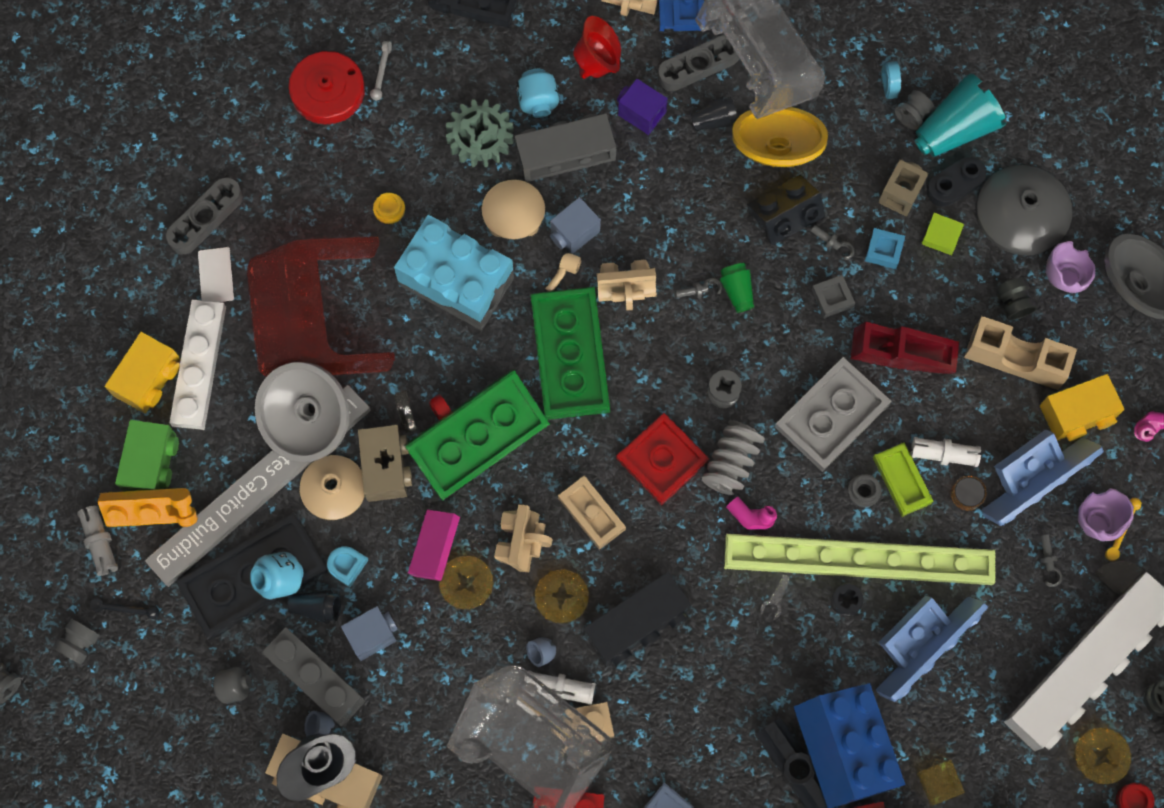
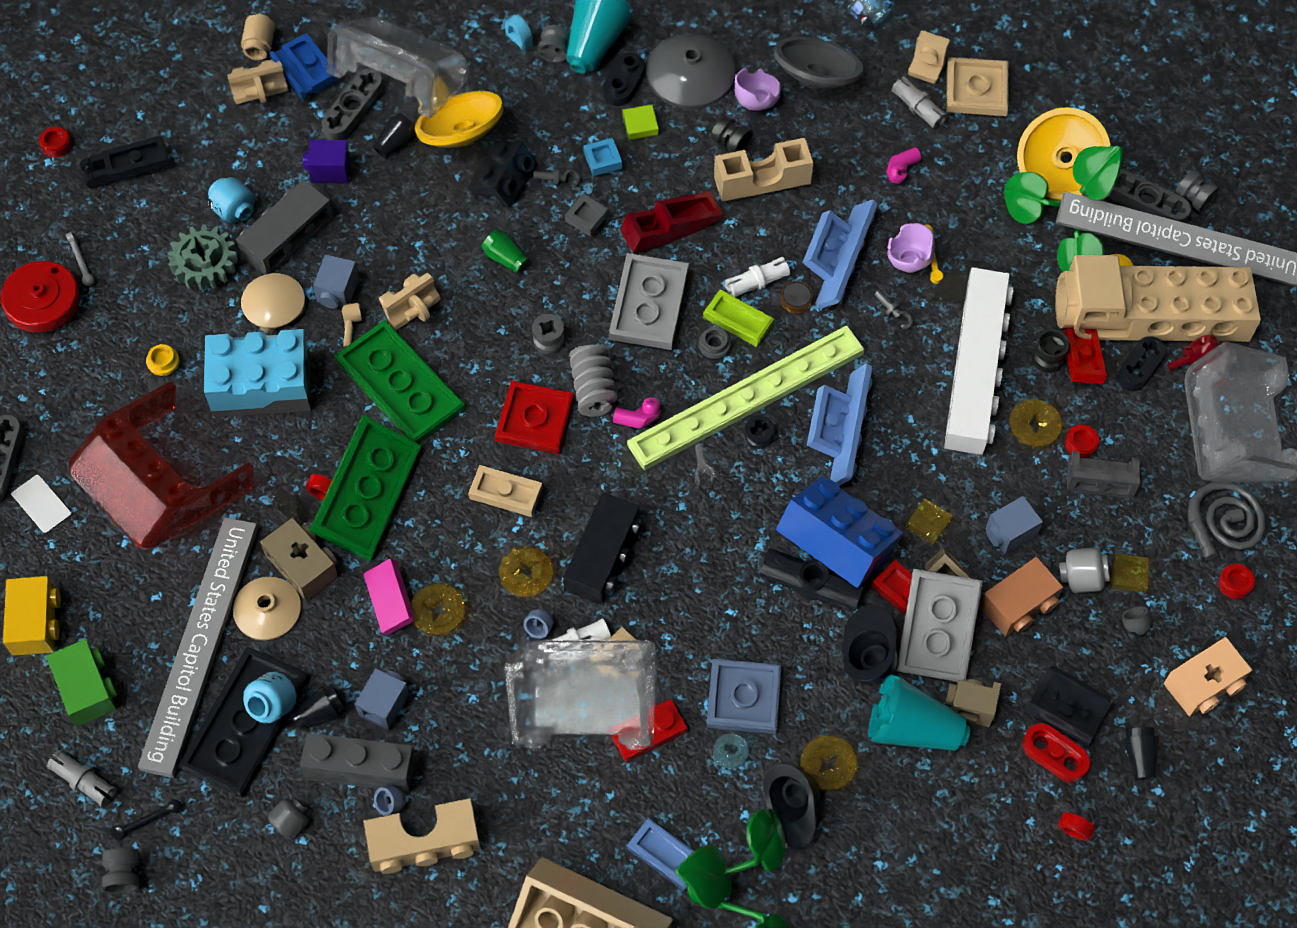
camera: 35 degrees left, 10 degrees down
(147, 507) = (111, 719): light orange plate -> none
(197, 364) = (75, 582): white plate -> none
(285, 415) = (178, 559): light grey dish -> none
(315, 766) = (414, 817): black piece -> none
(346, 564) = (322, 660): medium azure tile -> none
(526, 539) = (455, 534): tan hips -> none
(597, 49) = (259, 140): red piece -> none
(697, 289) = (472, 274): dark grey hand -> none
(897, 197) = (585, 104): dark tan brick -> none
(1082, 407) = (838, 182): yellow brick -> none

